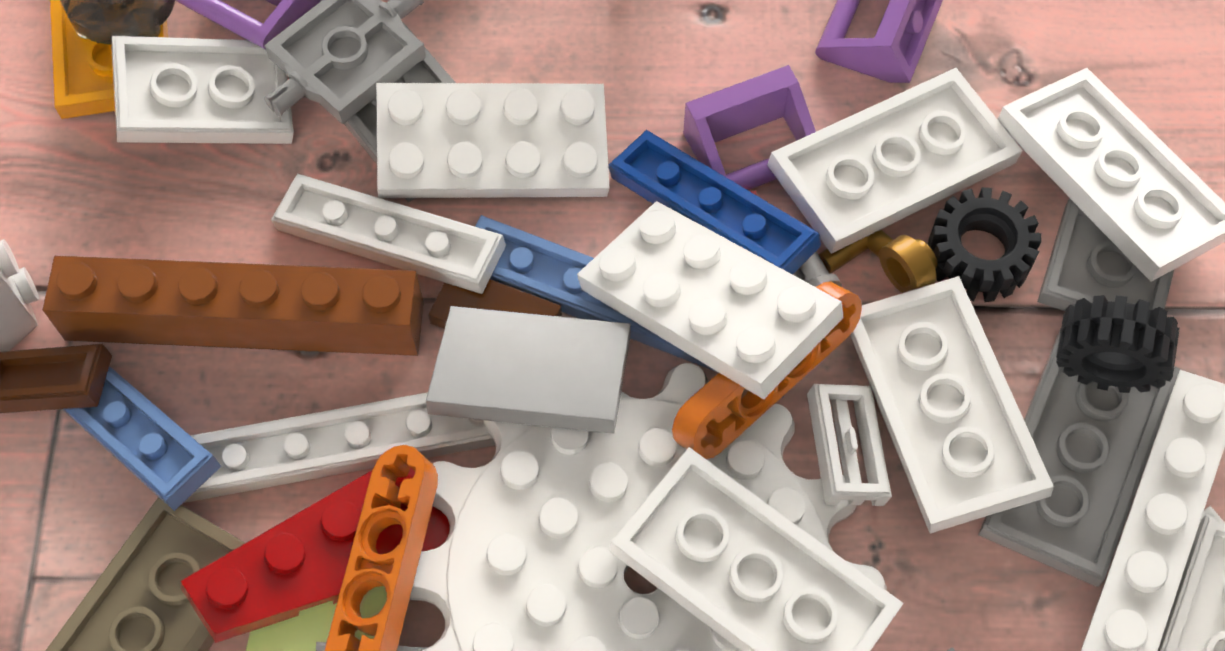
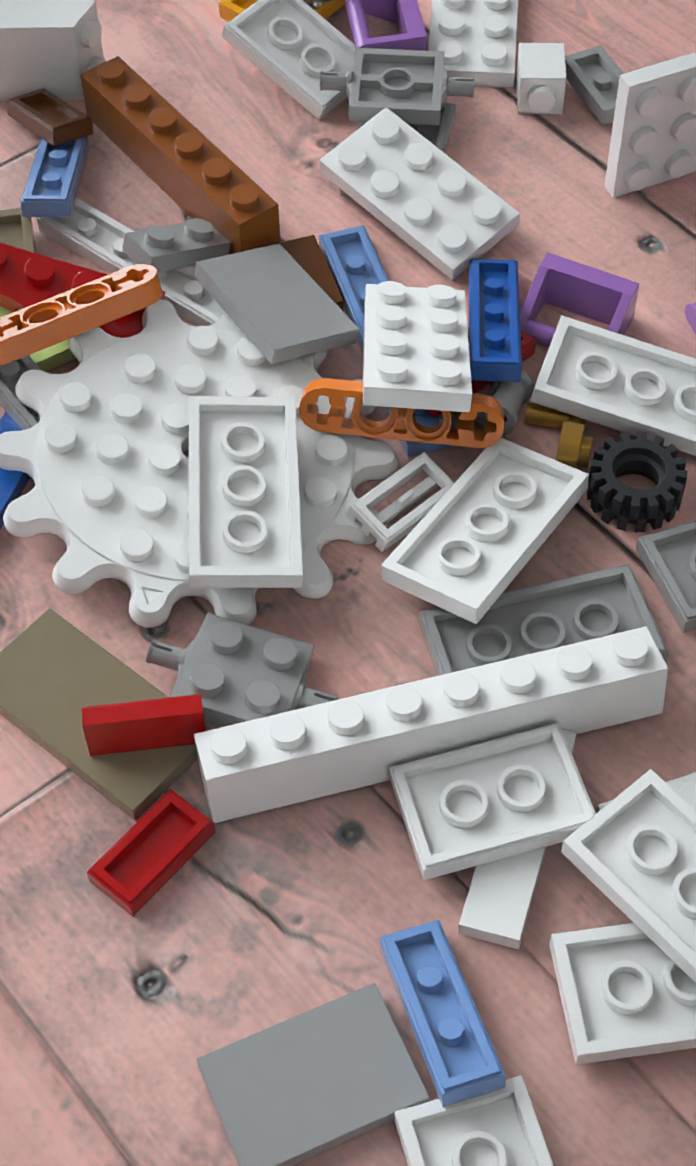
camera: 50 degrees right, 10 degrees down
(355, 398) = (175, 244): none -> light grey plate
(389, 233) = (303, 193): white tile -> none
(1118, 344) = (623, 575): black tyre -> none

